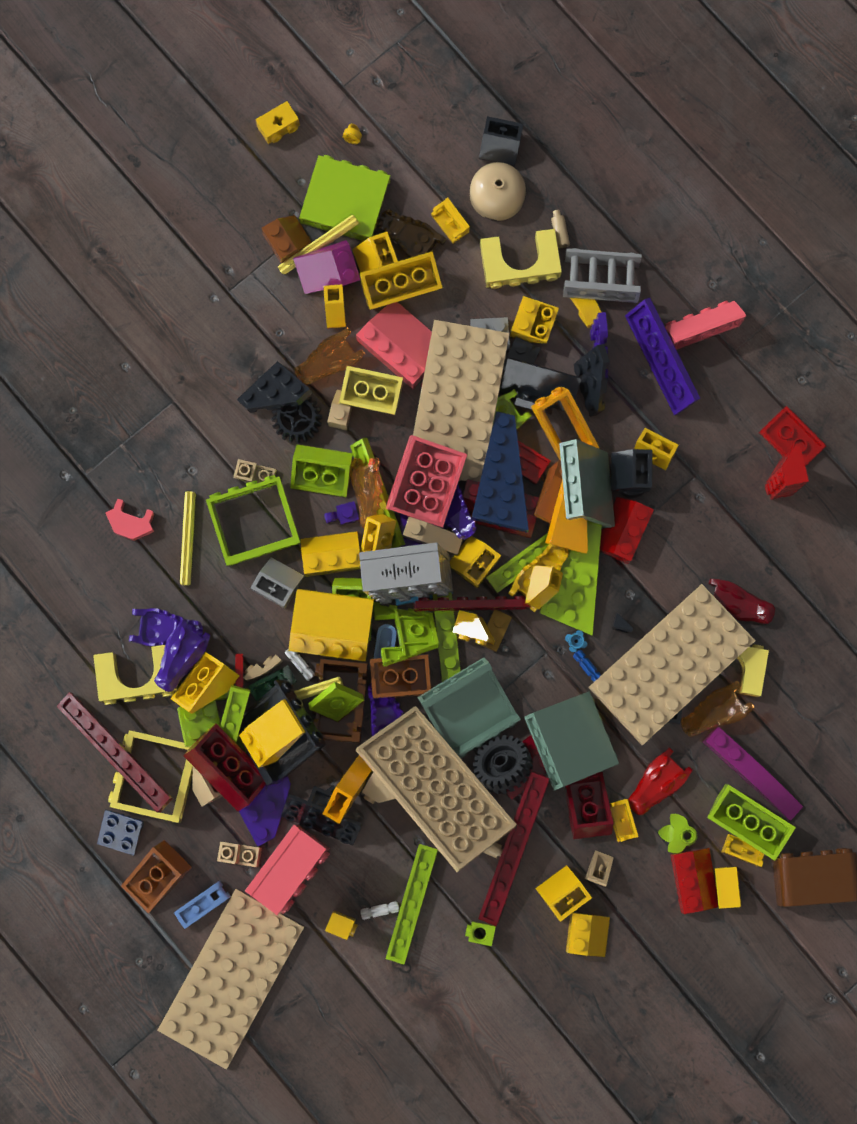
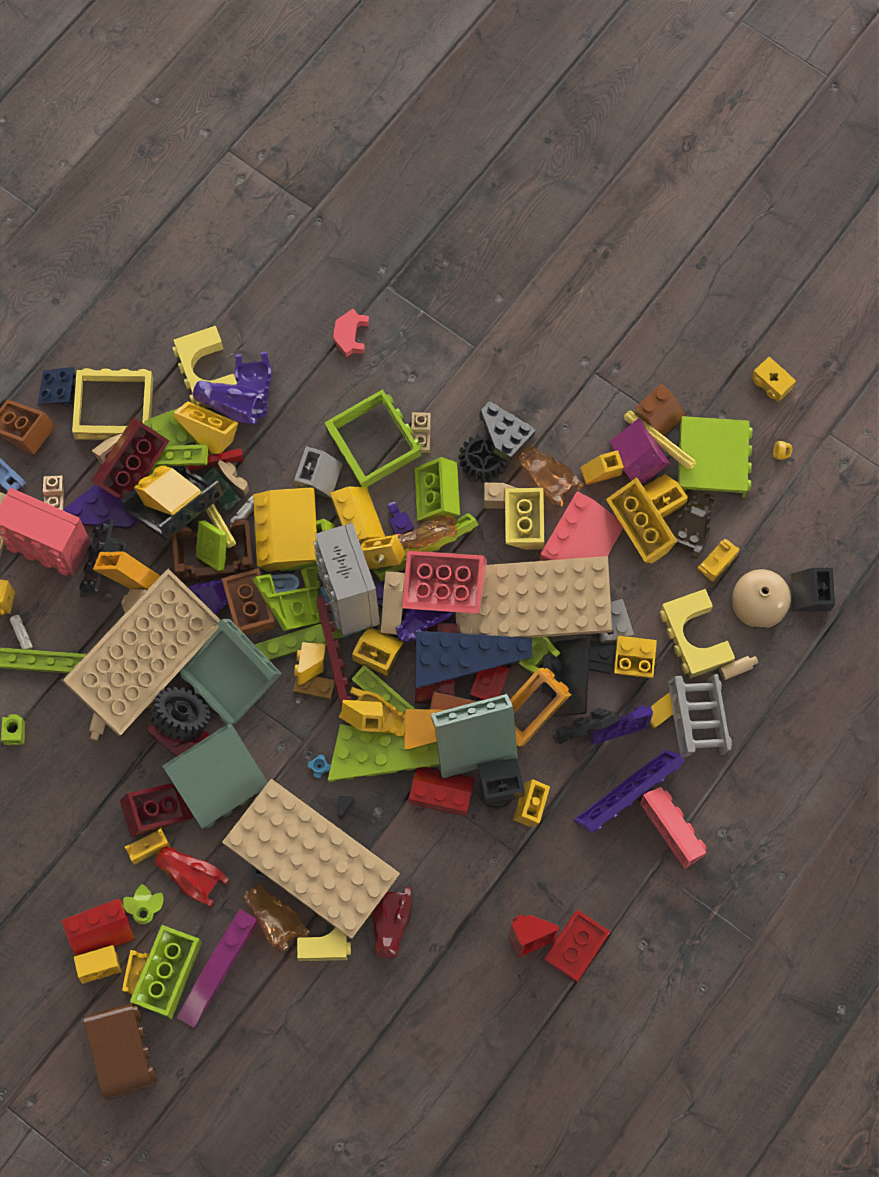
camera: 80 degrees right, 10 degrees down
(115, 752) = (126, 362): dark red plate -> none
(187, 538) = (345, 386): light yellow axle -> none
(514, 848) = (99, 742): dark red plate -> none
(563, 893) = (64, 800): yellow slope -> none
(586, 665) = (298, 779): blue axle -> none
(587, 934) = (27, 833): yellow slope -> none
(599, 868) = (93, 831): tan slope -> none

